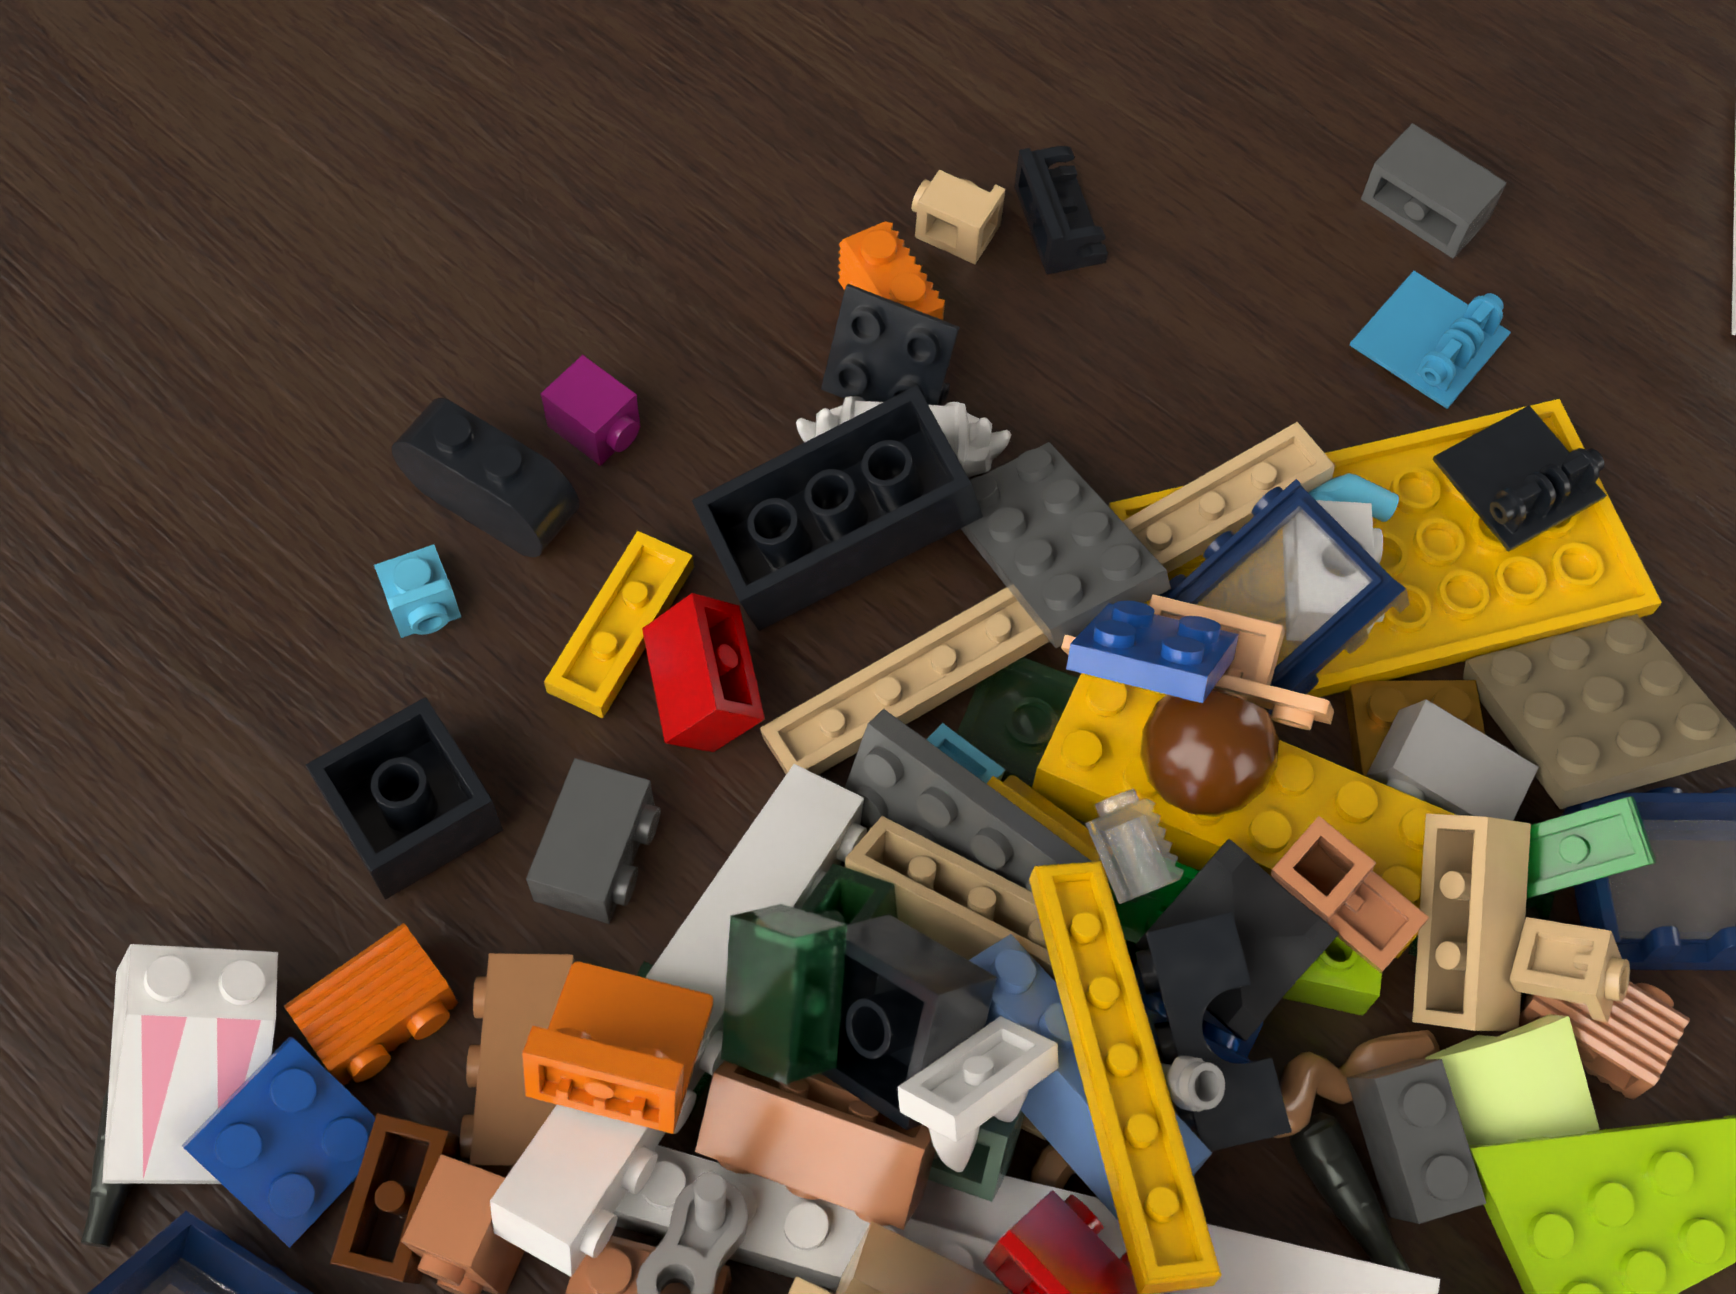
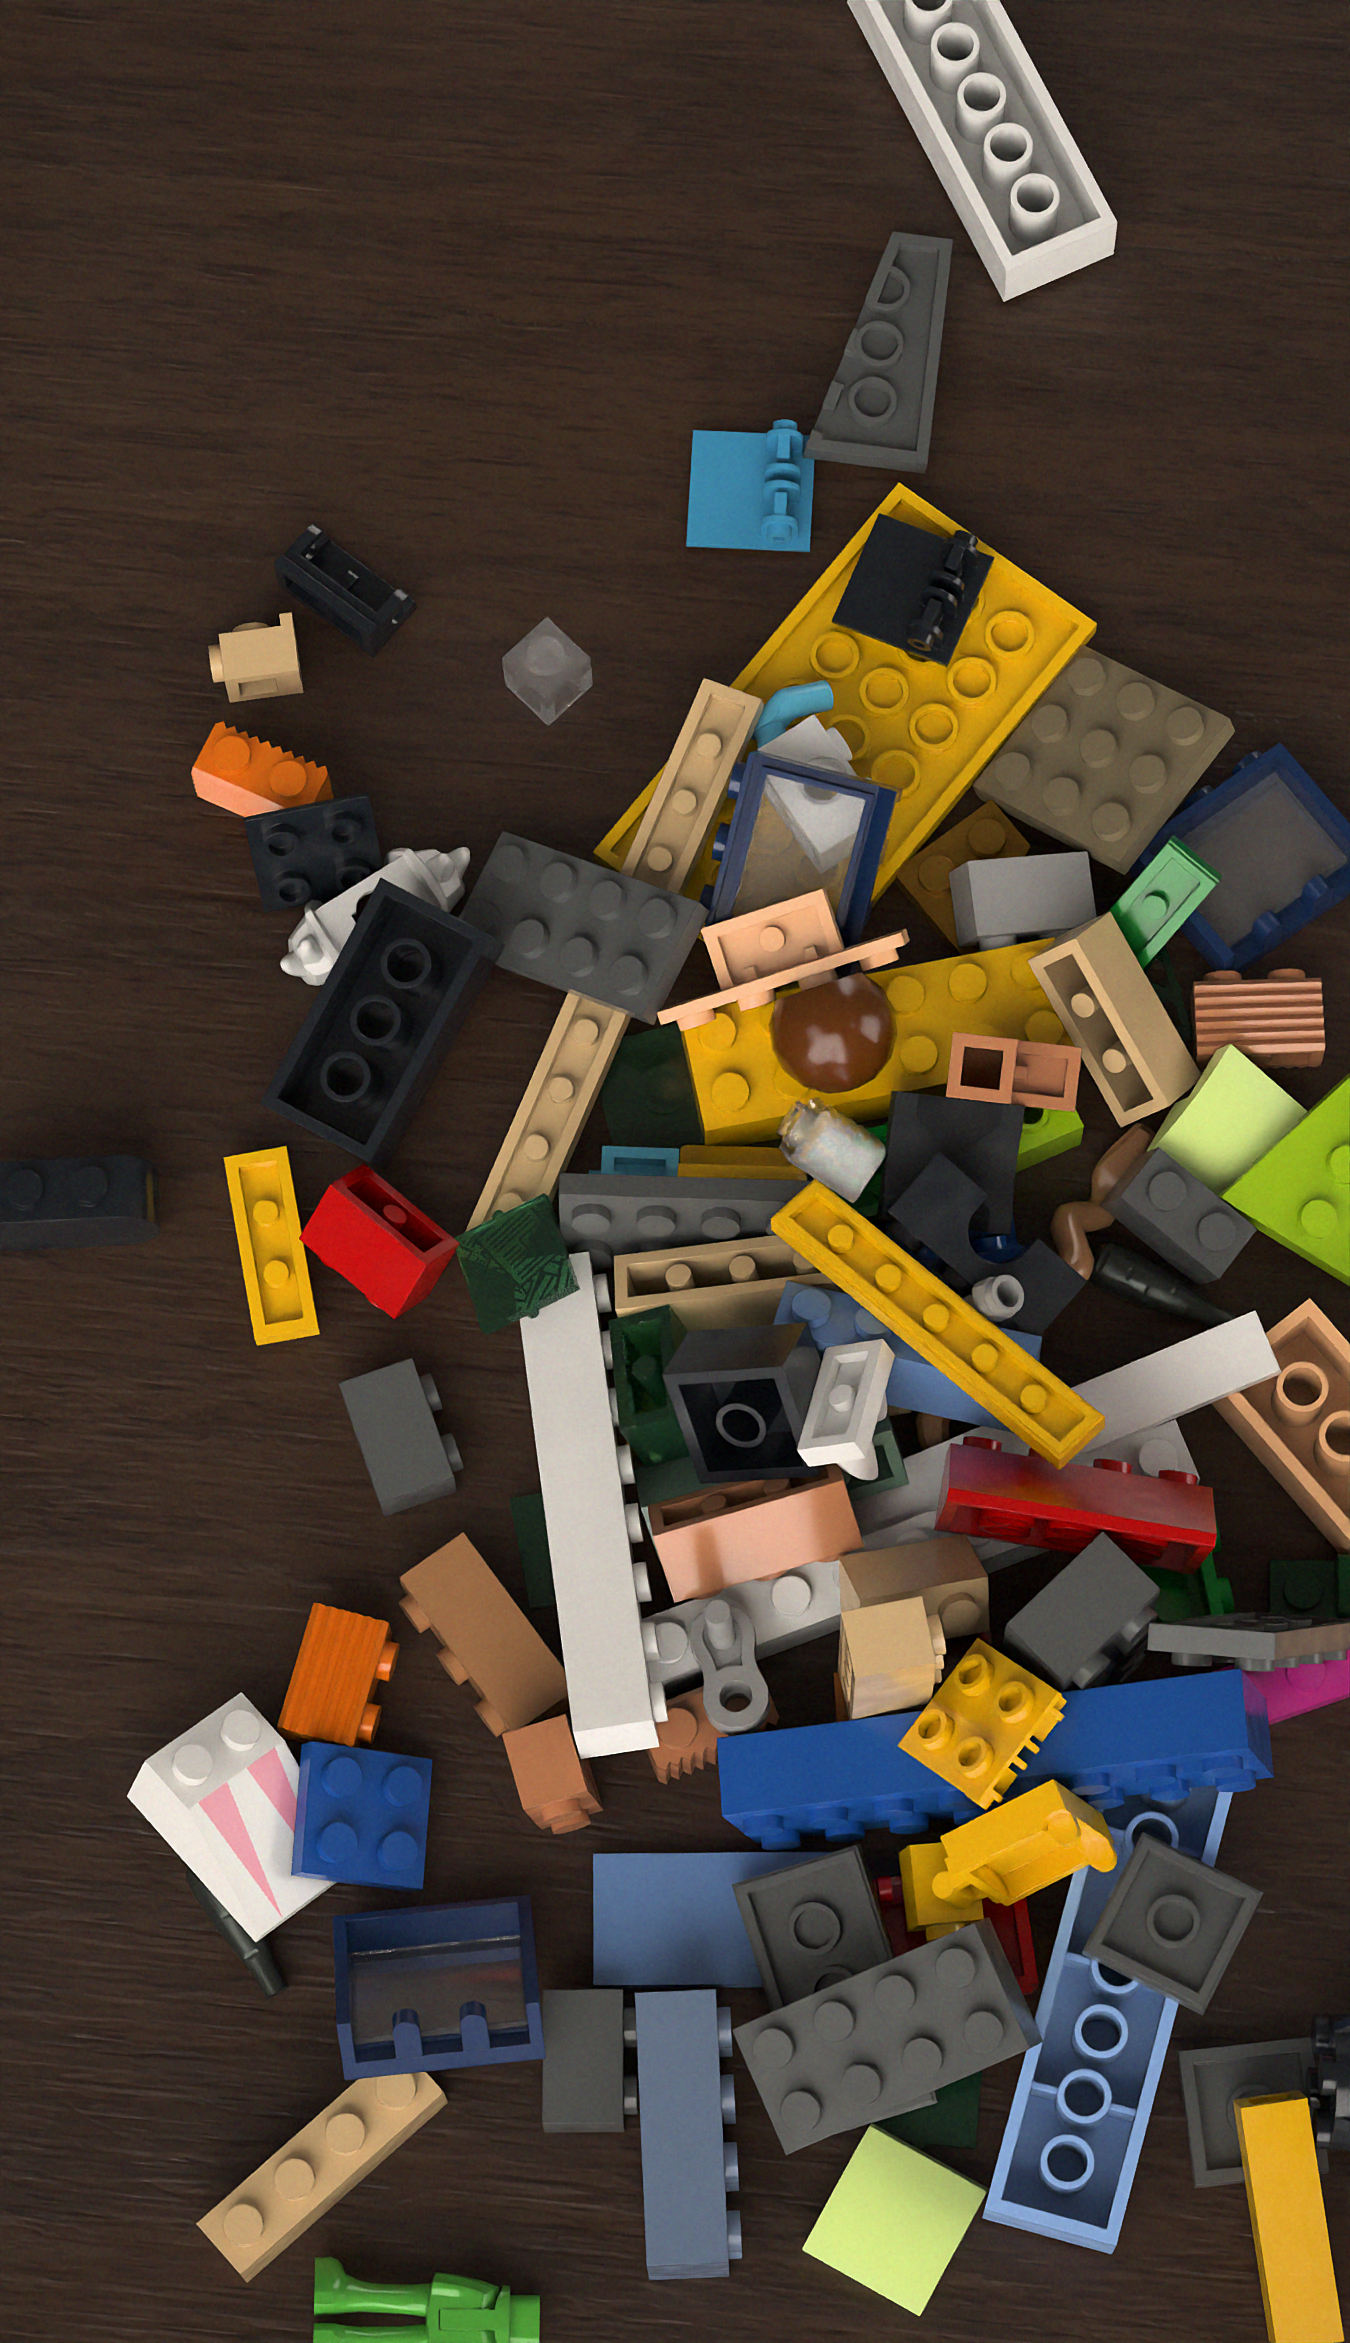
camera: 30 degrees left, 10 degrees up
(386, 1196) = (481, 1794): reddish brown brick -> none
(405, 797) = (229, 1509): black brick -> none
(418, 592) = (81, 1339): medium azure bracket -> none
(591, 410) = (95, 1077): magenta brick -> none
(618, 1047) = (575, 1564): orange bracket -> none
(783, 992) = (659, 1443): clear green brick -> none
(794, 765) = (516, 1264): none -> clear green piece
(1154, 651) = (741, 984): blue plate -> none
(1173, 354) = (547, 671): none -> clear brick
(1433, 190) = (658, 335): dark grey brick -> none
(1571, 965) = (1208, 1003): tan bracket -> none
(1607, 319) = (887, 378): none -> dark grey wing

